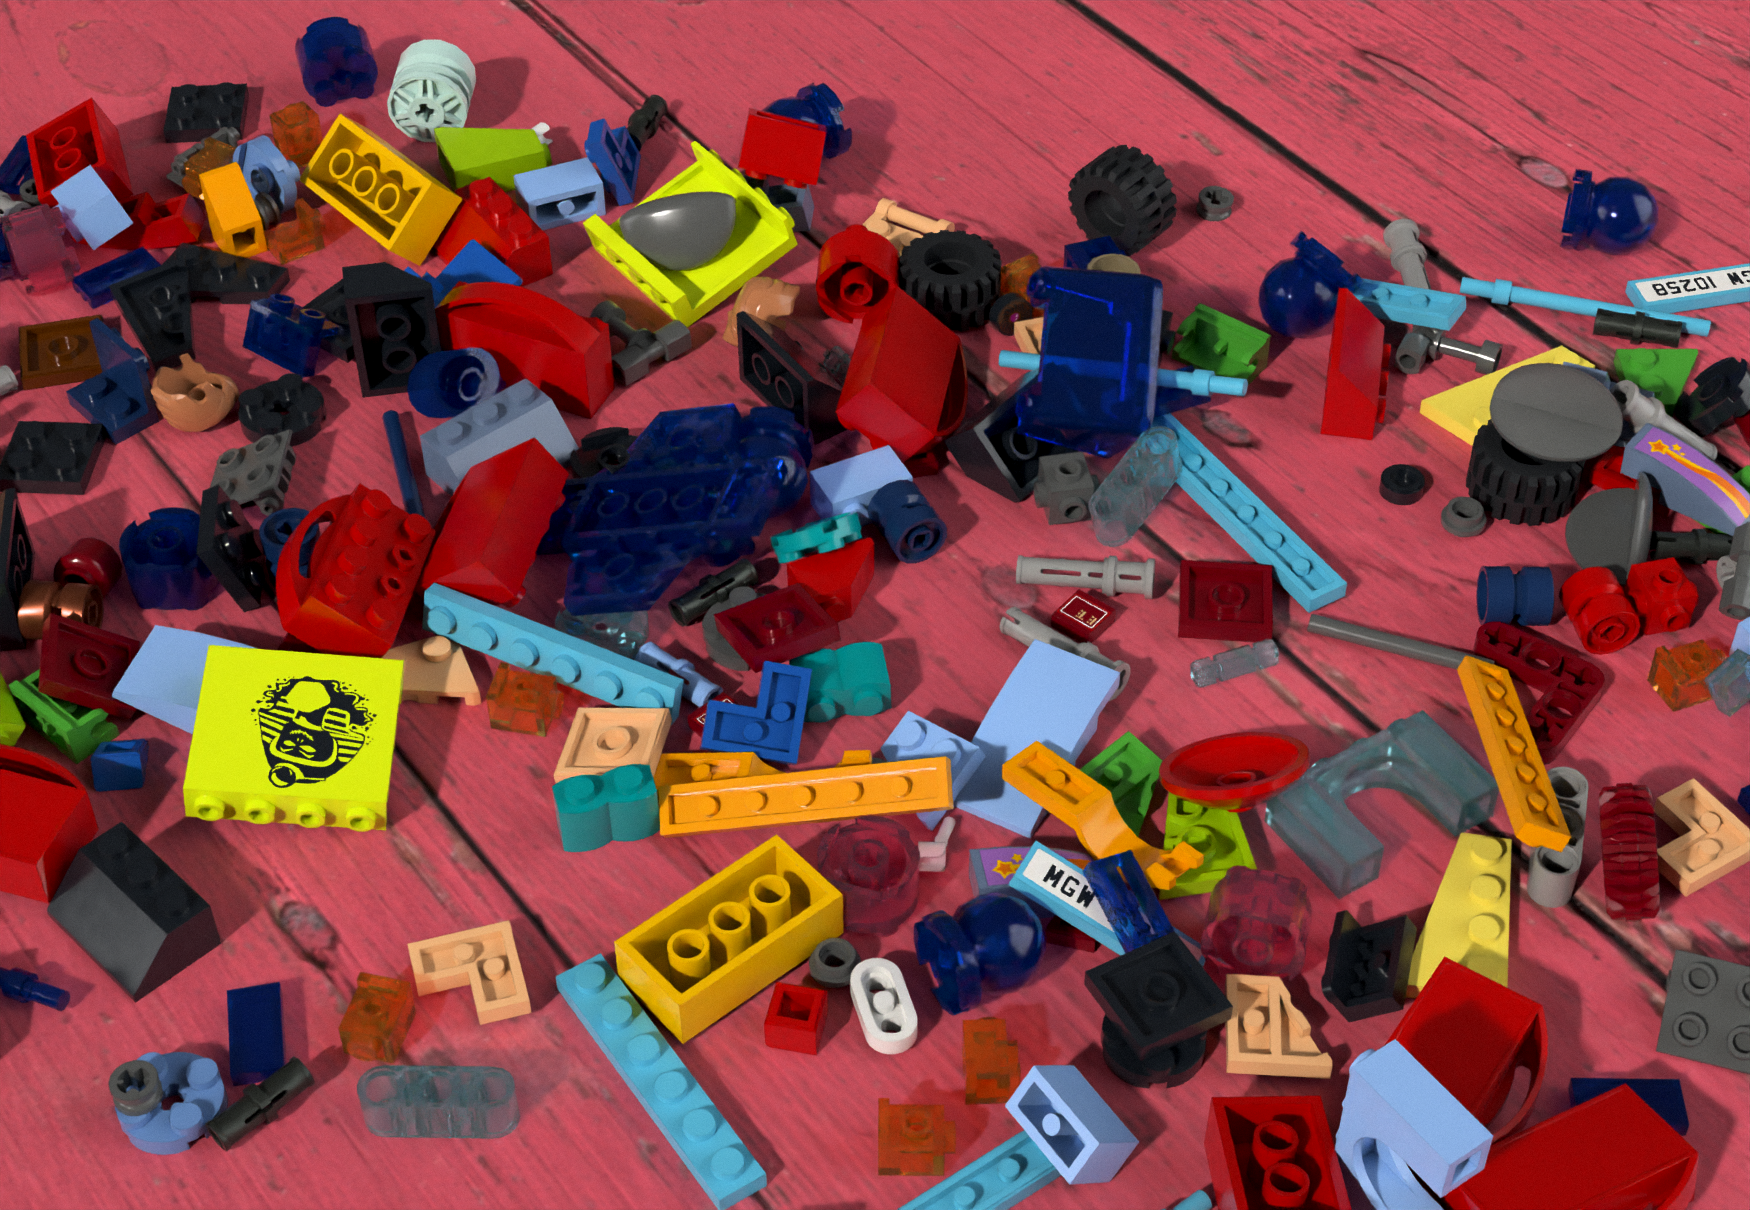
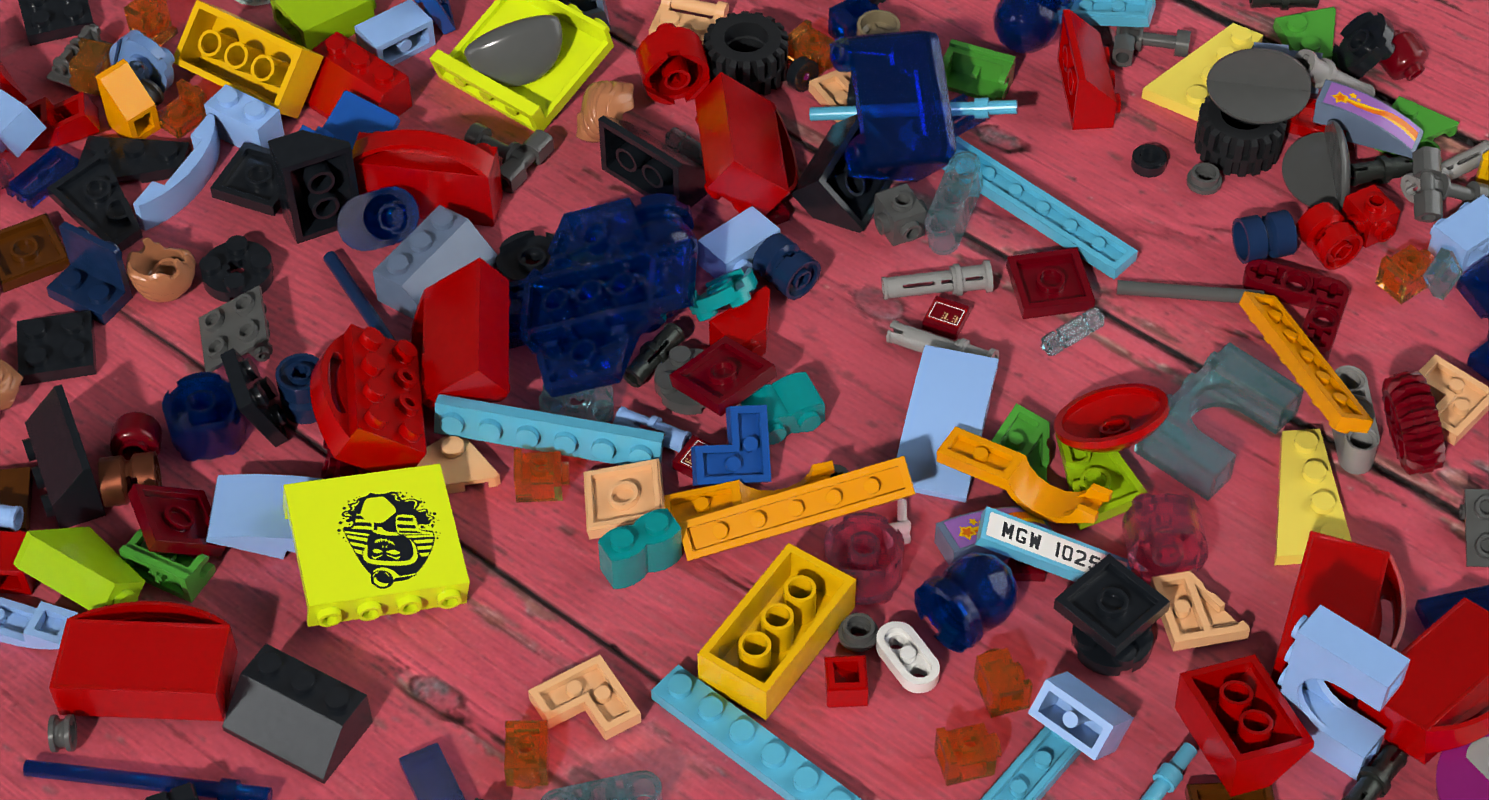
camera: 15 degrees left, 5 degrees up
(120, 765) = (230, 595): blue slope -> none
(225, 323) = (162, 201): none -> light blue slope
(287, 333) = (217, 201): clear blue bracket -> none
(347, 242) = (244, 118): none -> light blue brick
(922, 739) = (864, 447): light blue wing -> none
(1121, 904) = (1063, 542): clear blue tile -> none
(1368, 966) = (1251, 548): black bracket -> none

